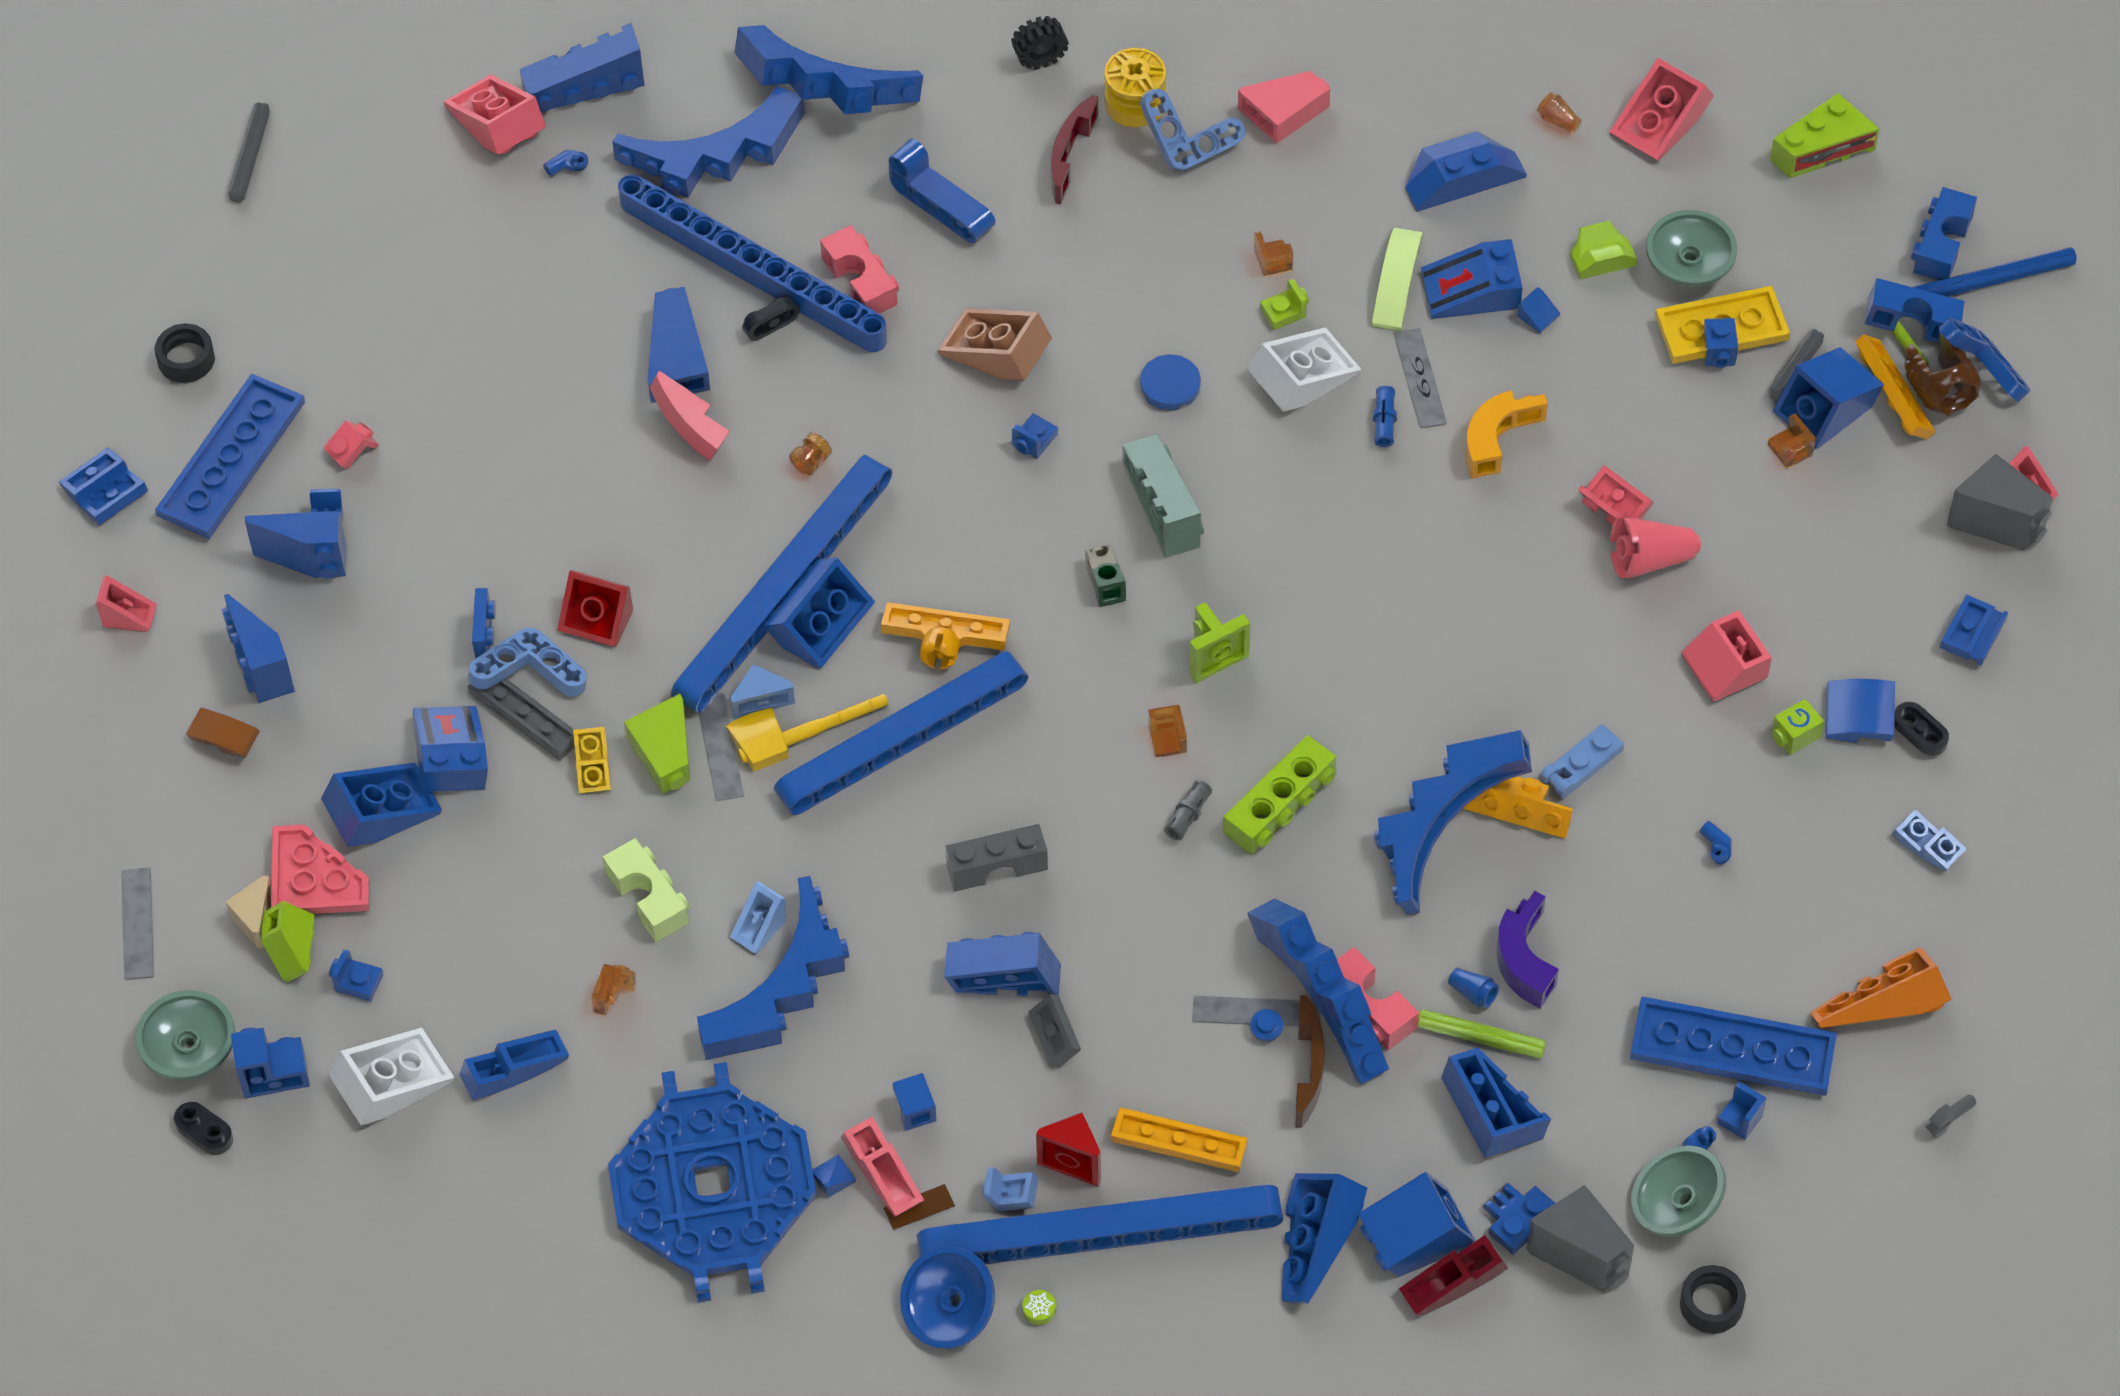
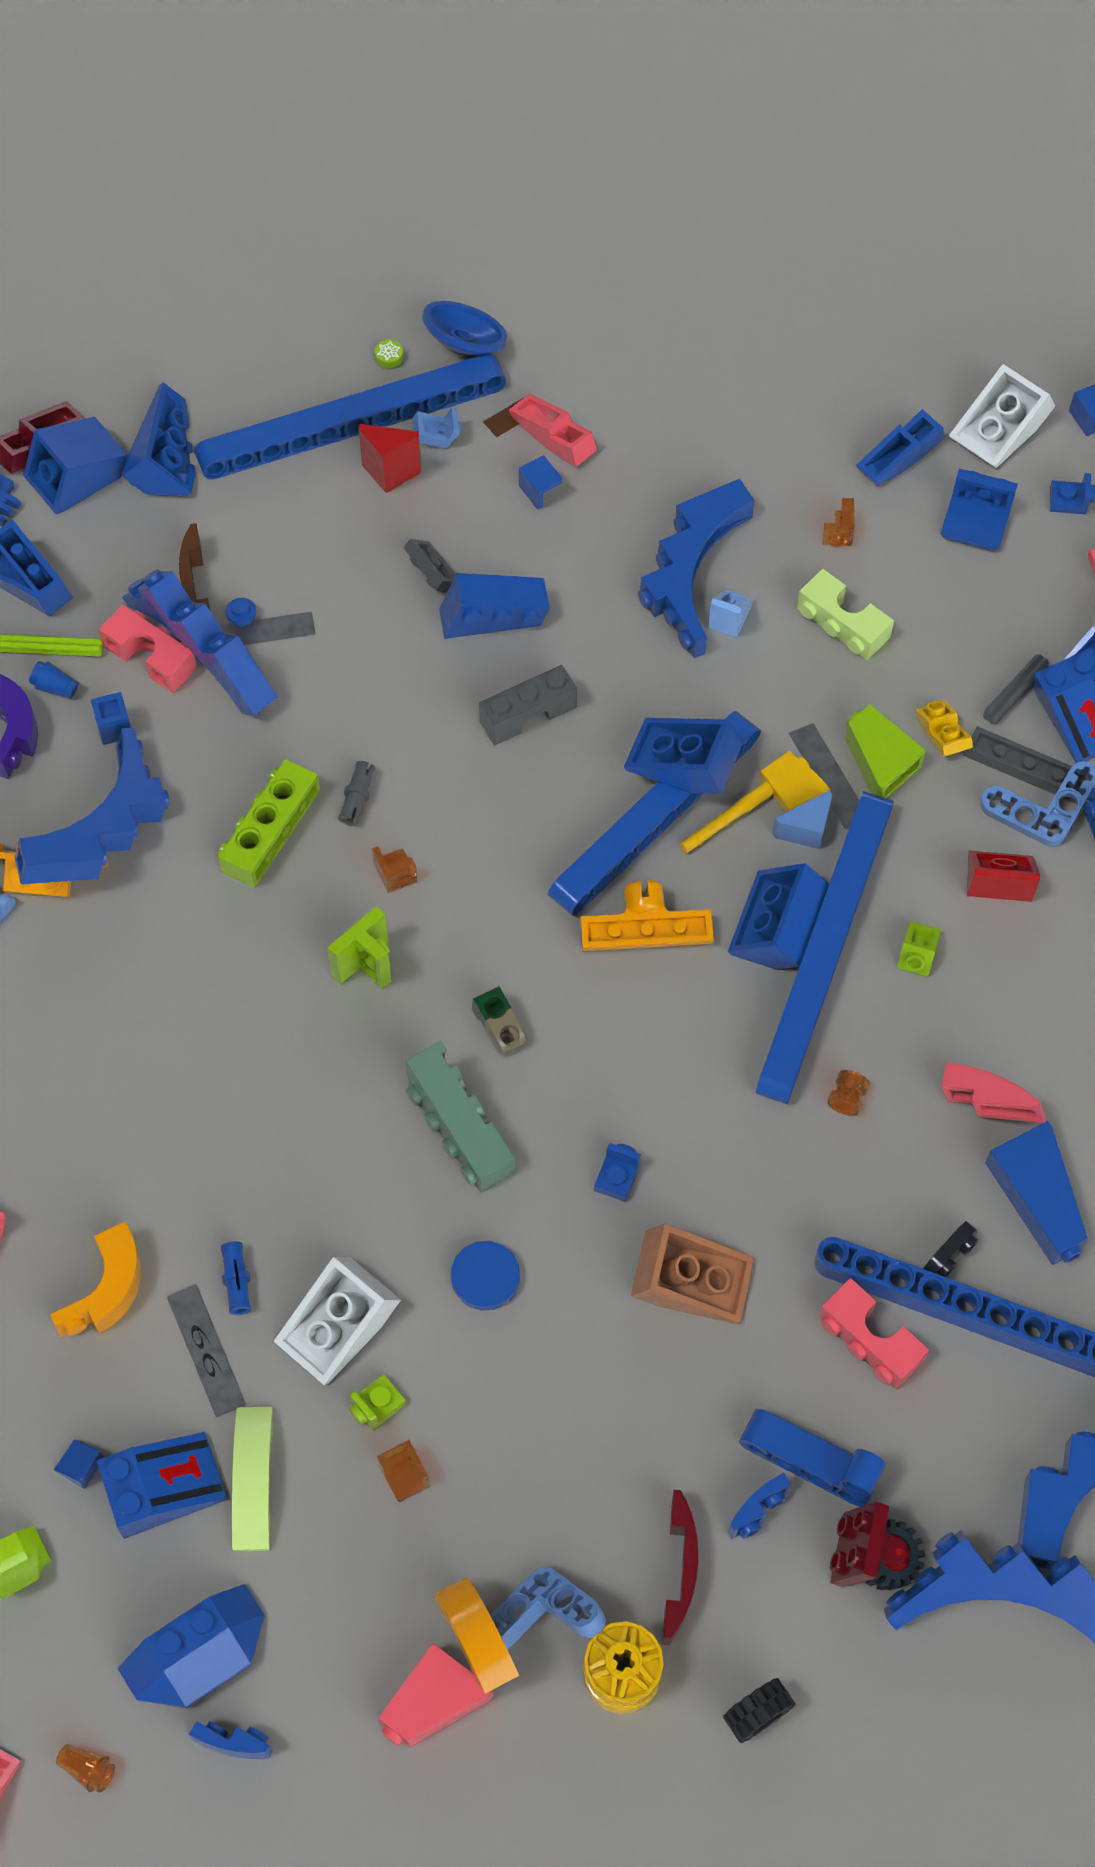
camera: 165 degrees right, 5 degrees up
(464, 972) = (979, 509): none -> blue bracket
(503, 786) = (1014, 689): none -> dark grey axle
(697, 563) = (919, 948): none -> lime bracket
(704, 1130) = (678, 350): blue plate -> none
(833, 1176) = (594, 418): blue slope -> none
(862, 752) = (685, 753): none -> blue slope
(917, 118) = (875, 1549): none -> dark red plate
(1005, 171) = (751, 1514): none -> blue slope
(1179, 1139) = (299, 499): light orange plate -> none
(1247, 121) = (476, 1634): none -> light orange arch
(1420, 923) = (110, 716): none -> blue panel
(1440, 102) = (242, 1744): none -> blue slope

